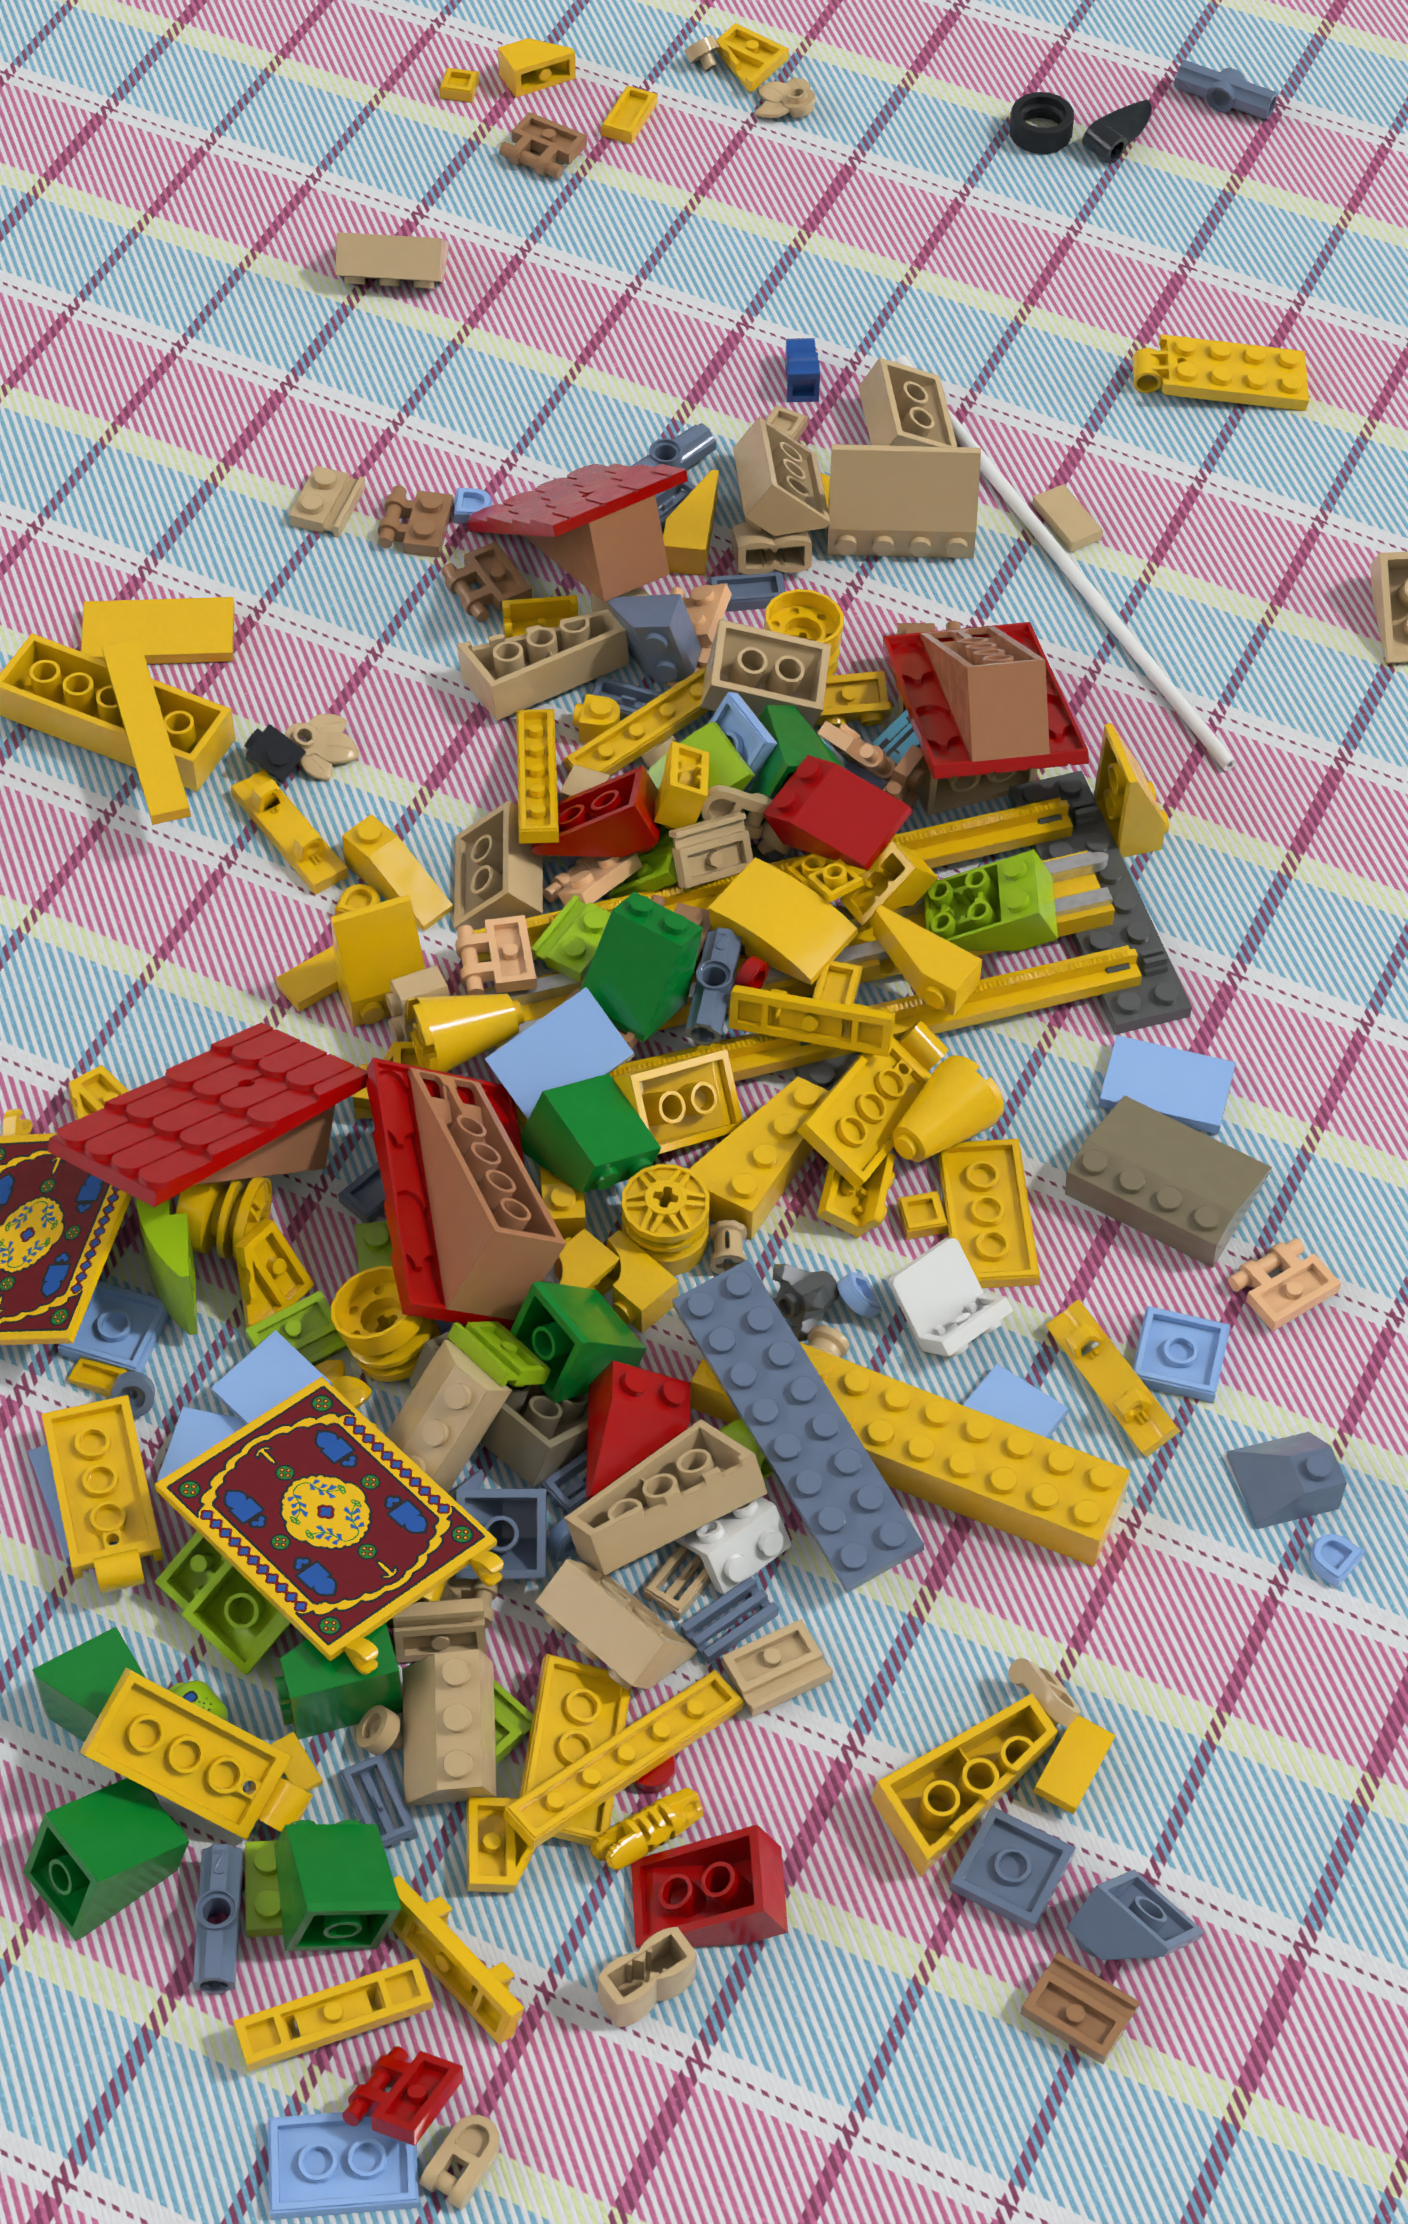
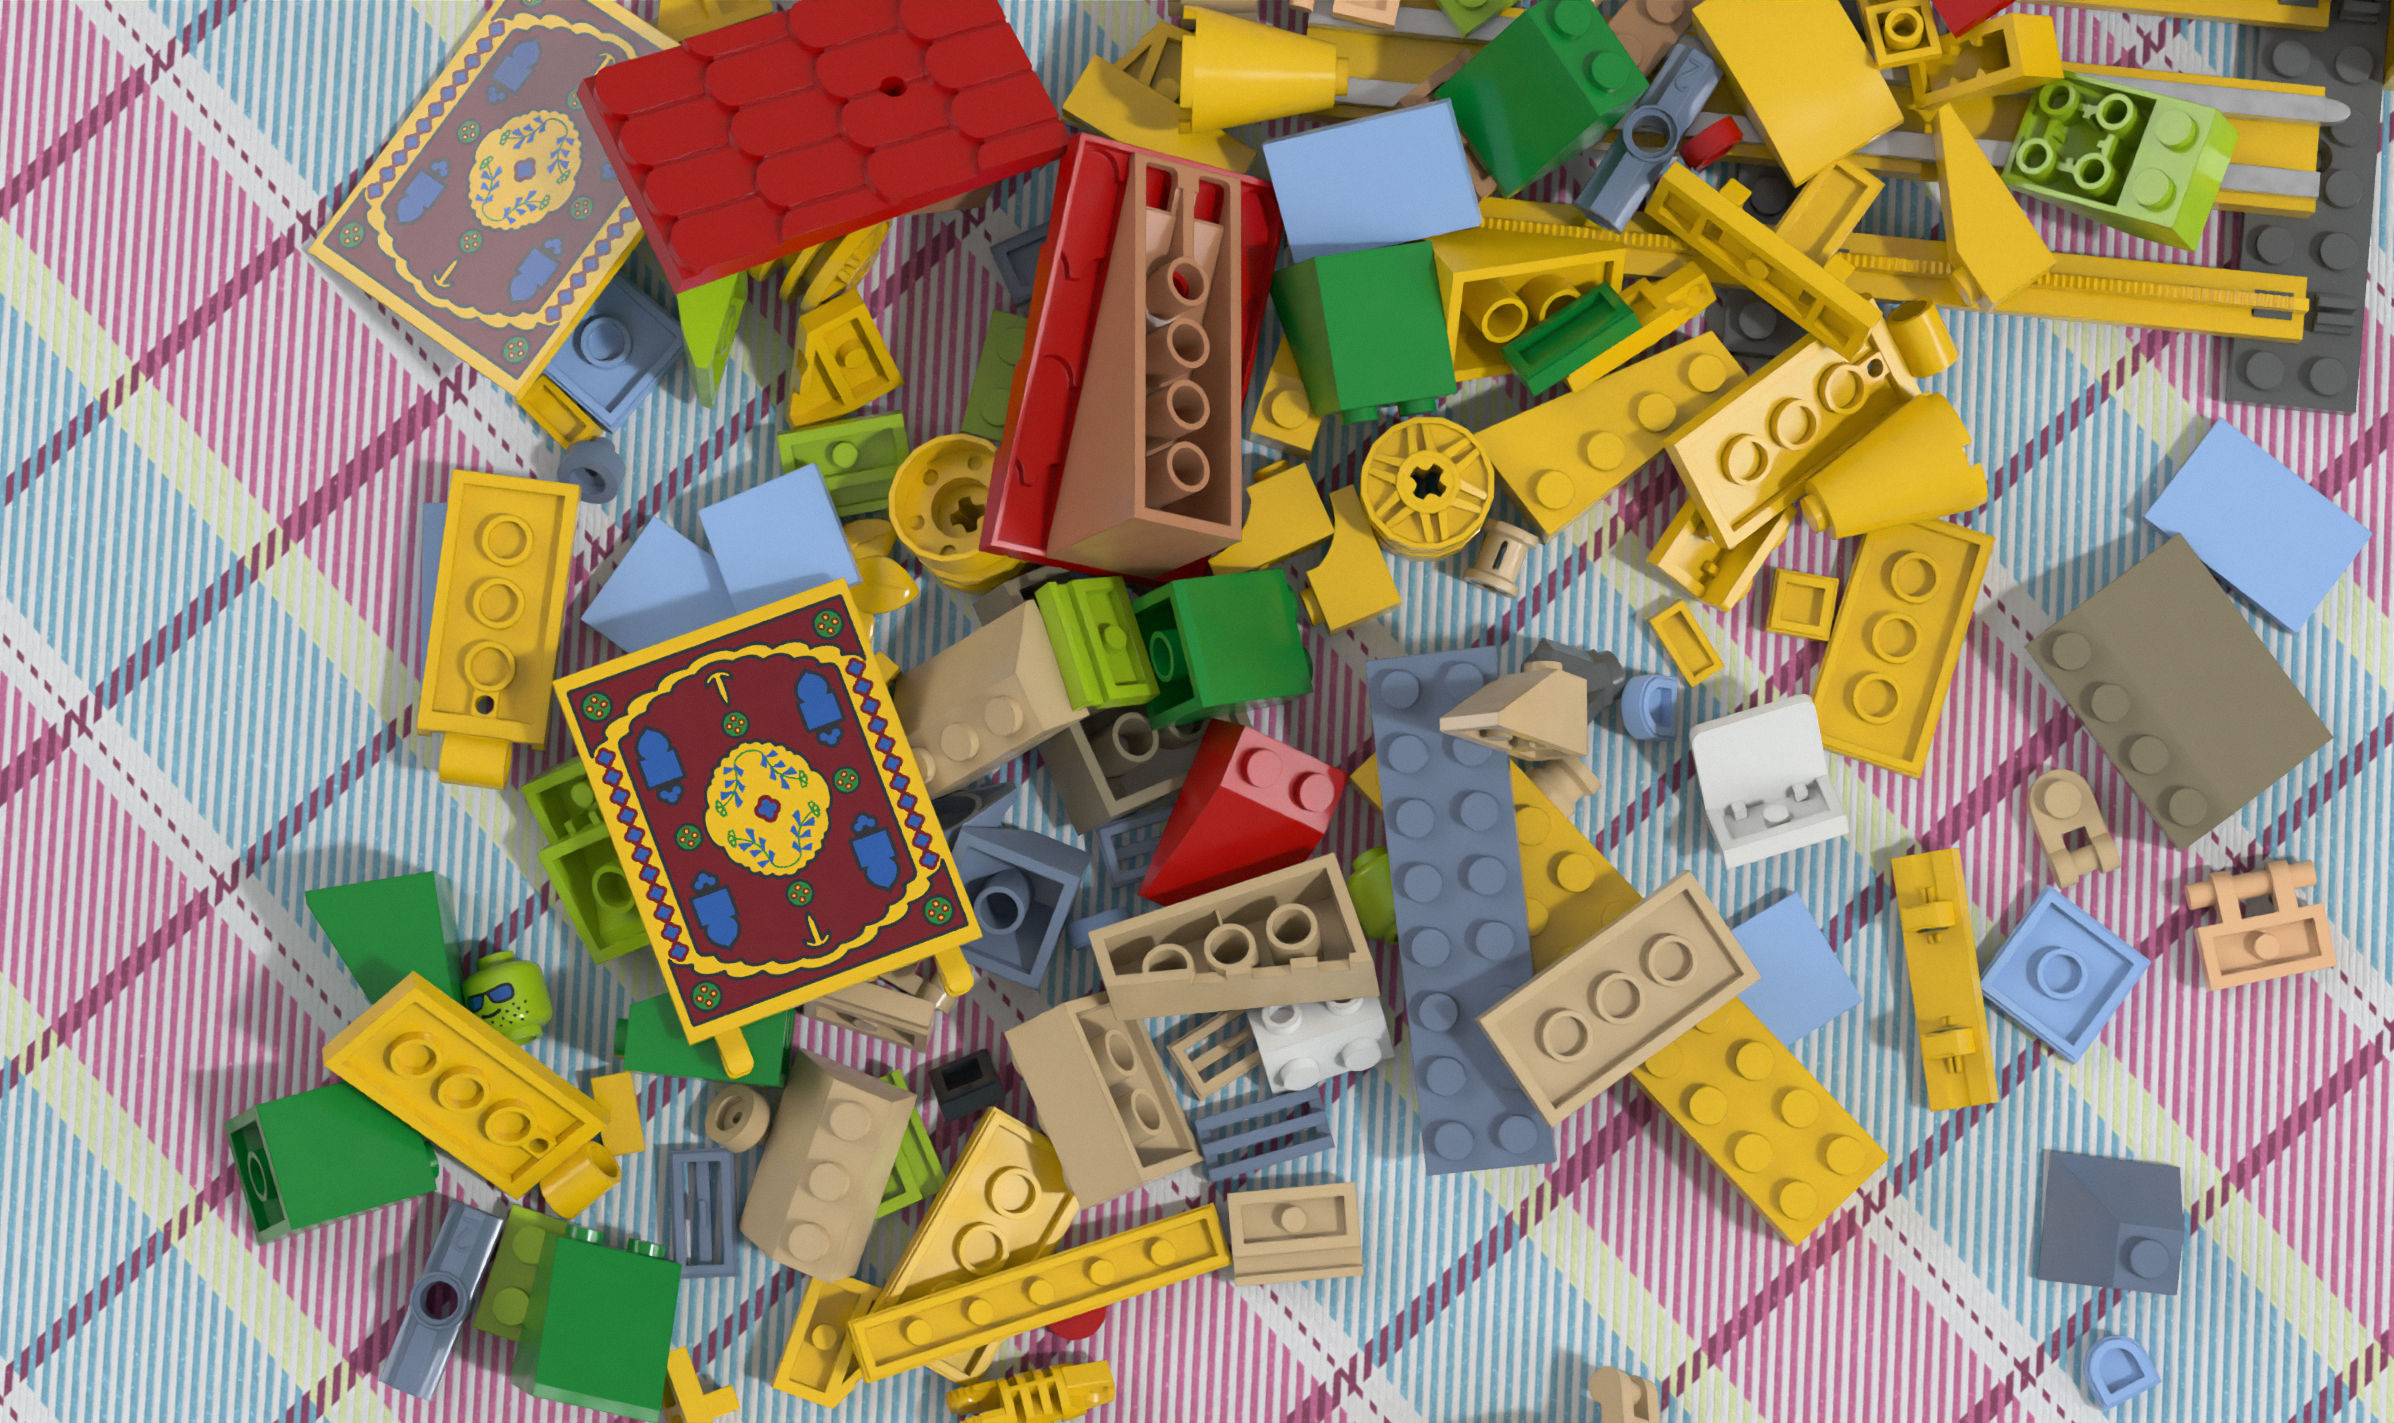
camera: 25 degrees right, 30 degrees up
(522, 1655) = (966, 1085): none -> black tile
(715, 1104) = (1570, 338): none -> green tile
(745, 1093) = (1659, 309): none -> yellow hinge
(786, 1290) = (1526, 714): none -> tan slope
(861, 1258) = (1685, 642): none -> yellow piece
(917, 1427) = (1618, 998): none -> tan plate
(1133, 1263) = (2060, 804): none -> tan plate

